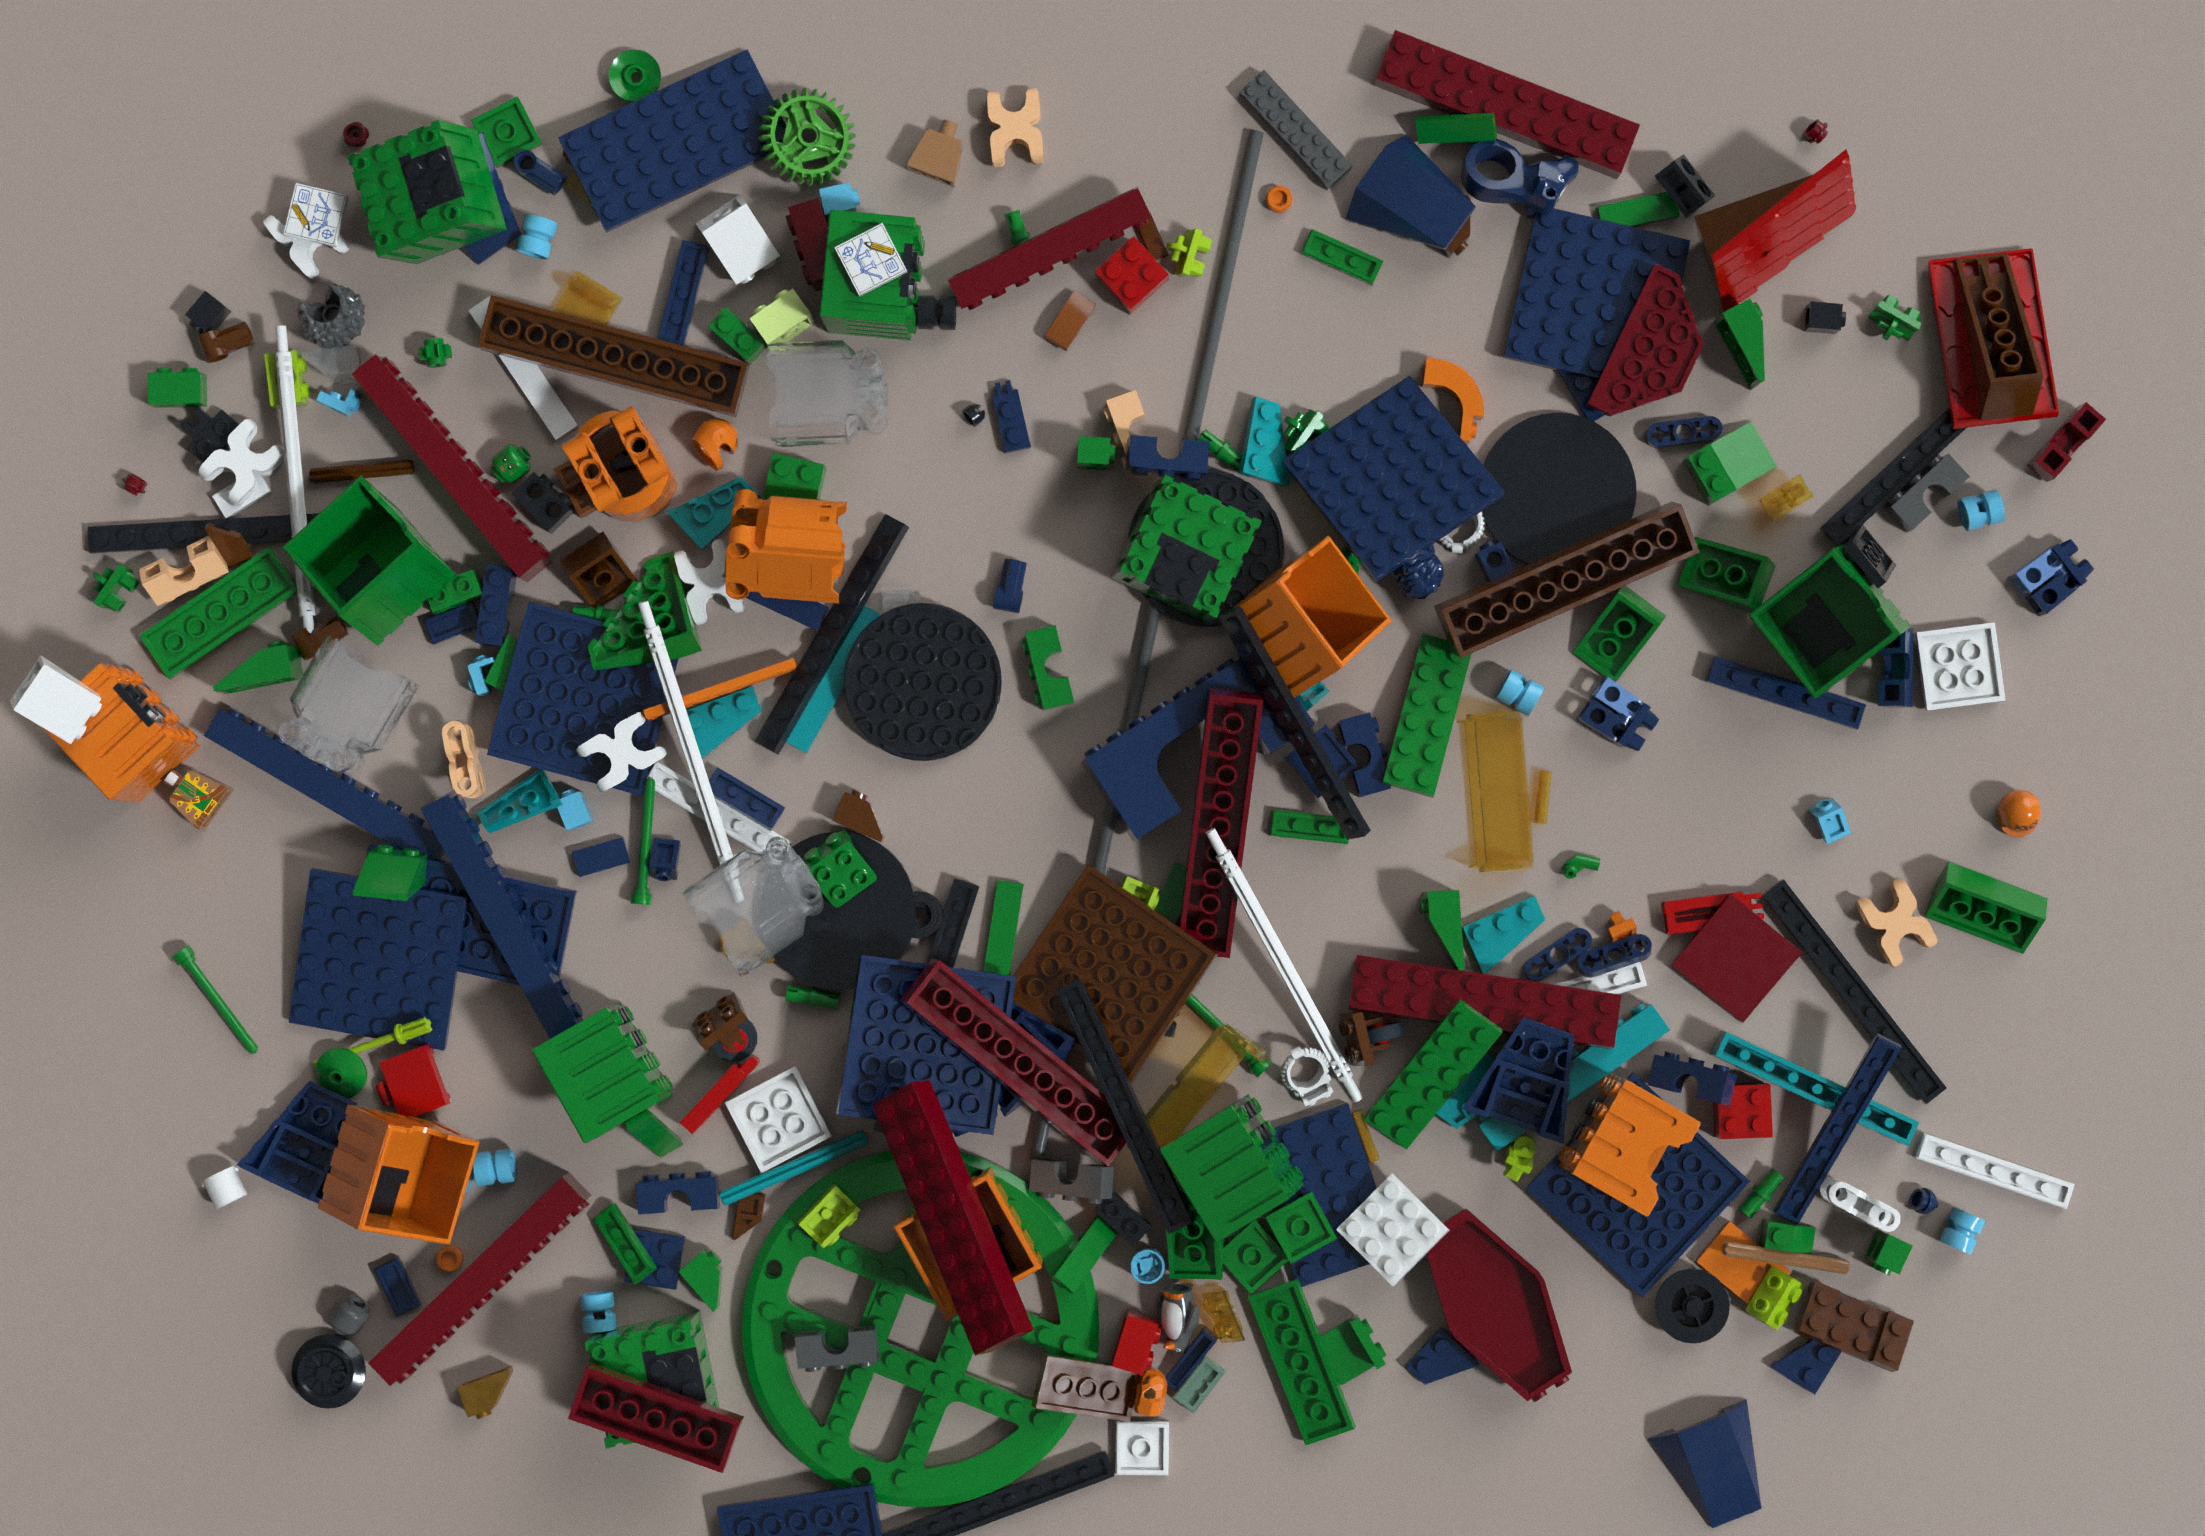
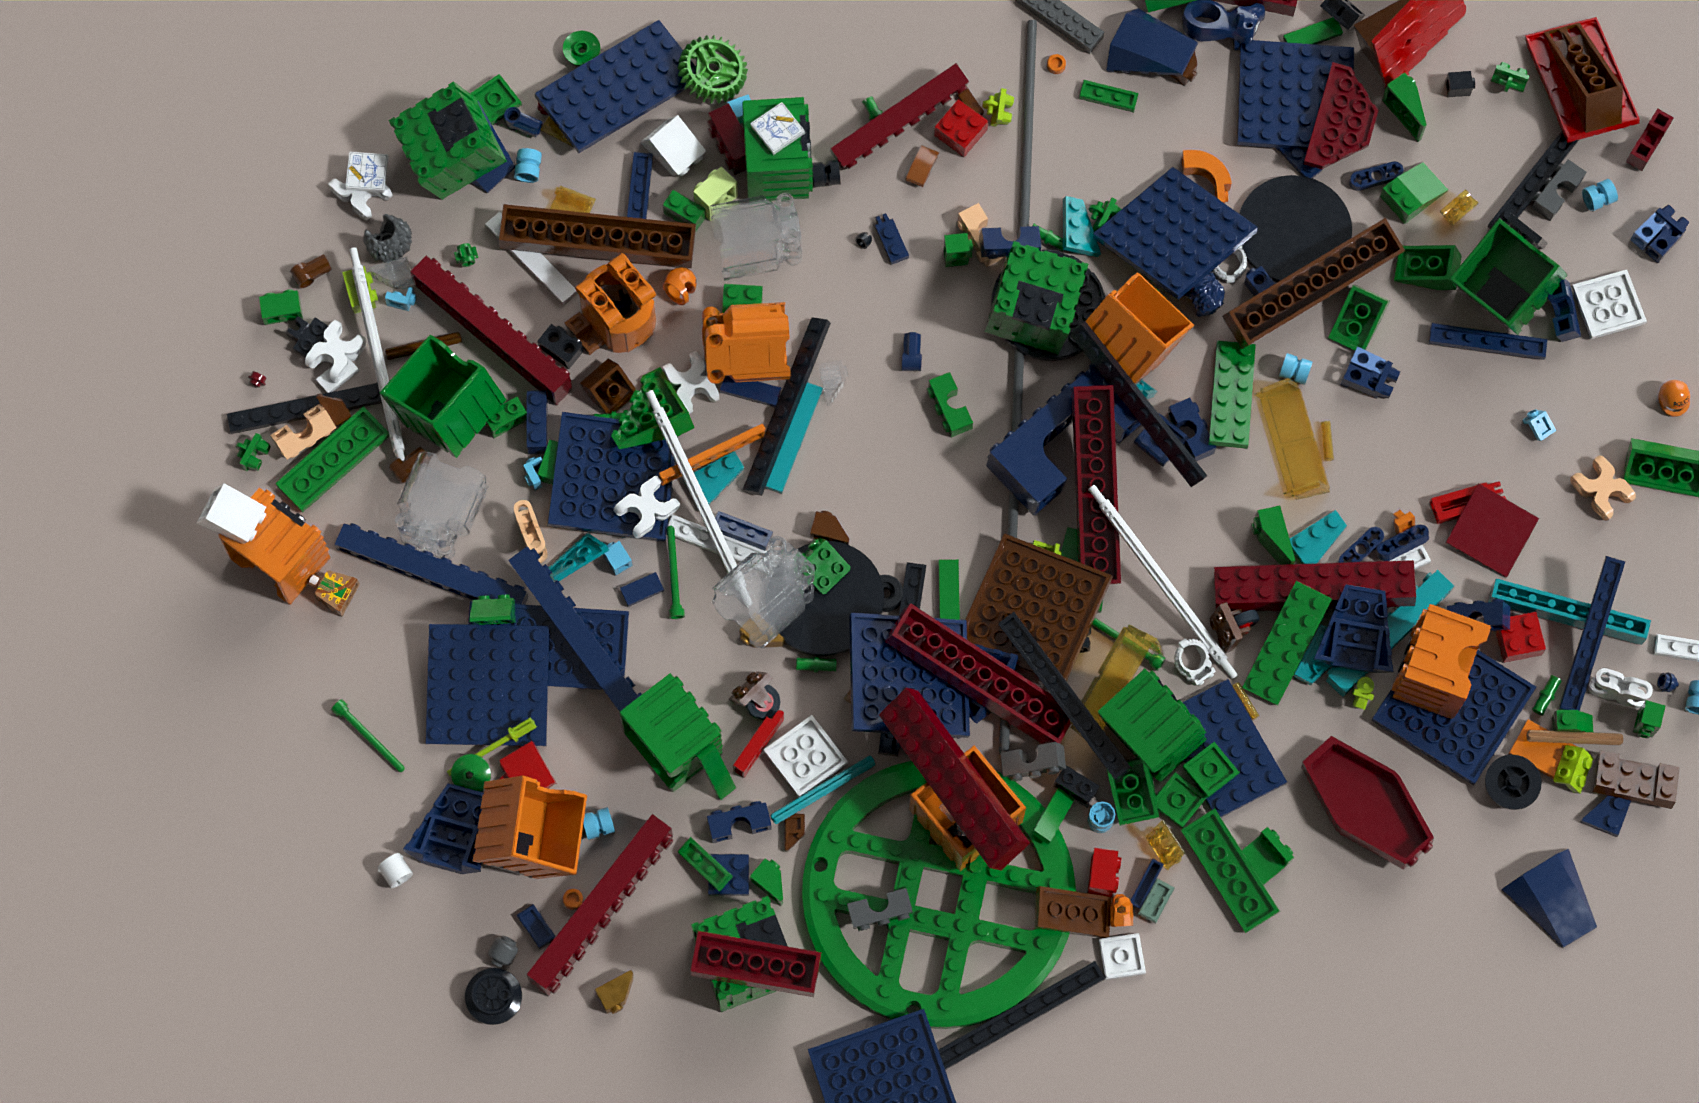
camera: 10 degrees left, 15 degrees down
(207, 313) = (295, 252): black brick -> none
(265, 668) = (373, 491): green slope -> none
(349, 132) = (382, 114): dark red plate -> none
(452, 622) = (506, 441): dark blue tile -> none
(511, 463) = (533, 322): green head -> none
(598, 1302) = (690, 911): medium azure wheel -> none
(664, 859) = (690, 583): dark blue bracket -> none
(709, 514) = (682, 337): teal wing -> none
(829, 1217) = (856, 815): lime bracket -> none
(922, 681) = (859, 427): black tile -> none
(938, 154) = (807, 69): medium nougat torso -> none
(1015, 127) = (859, 43): light nougat piece -> none
(1177, 1315) = (1132, 850): dark grey animal -> none
(1306, 827) = (1160, 488): green tile -> none
(1392, 1229) = (1279, 759): white plate -> none
(1440, 1358) = (1333, 854): dark blue wing -> none
(1579, 862) = (1362, 482): green arm -> none
(1852, 988) = (1580, 538): black plate -> none

